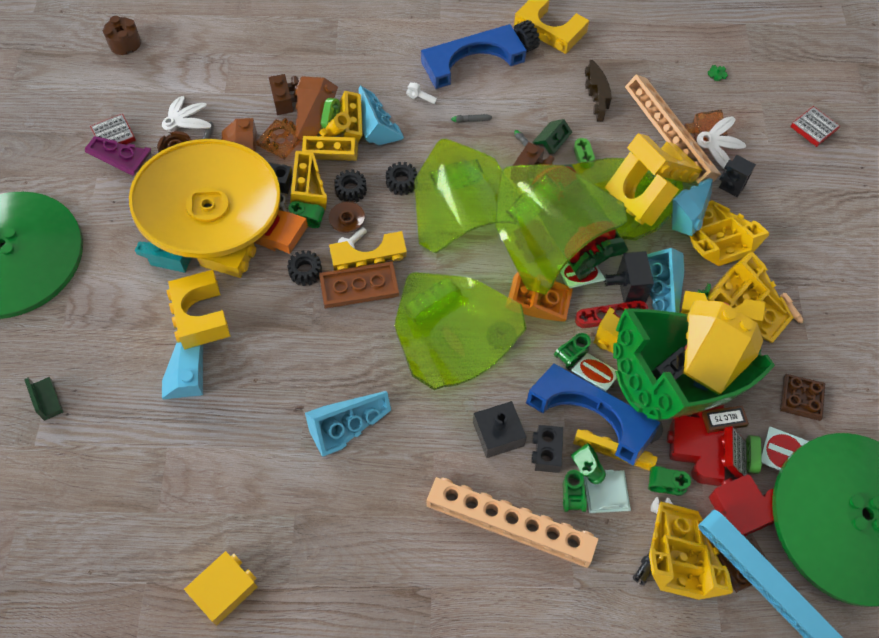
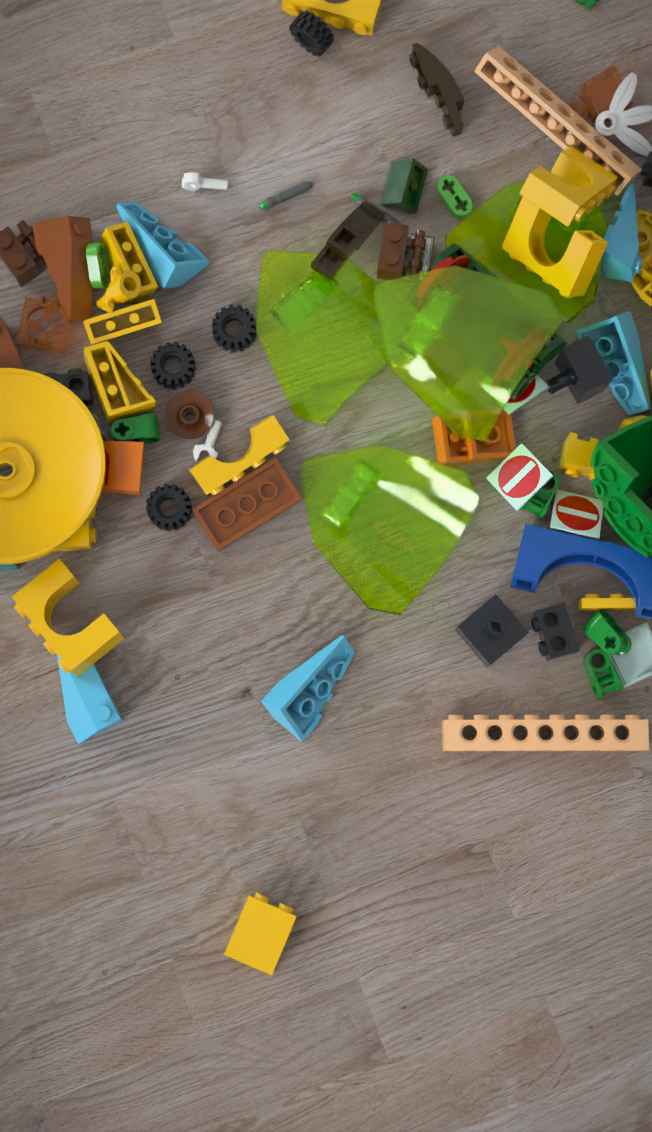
camera: 25 degrees left, 20 degrees up
(498, 42) = (274, 53): blue arch -> none
(498, 145) = (347, 239): none -> dark brown slope
(561, 331) = (519, 477): none -> piece
(587, 313) = (567, 424): red beam -> none

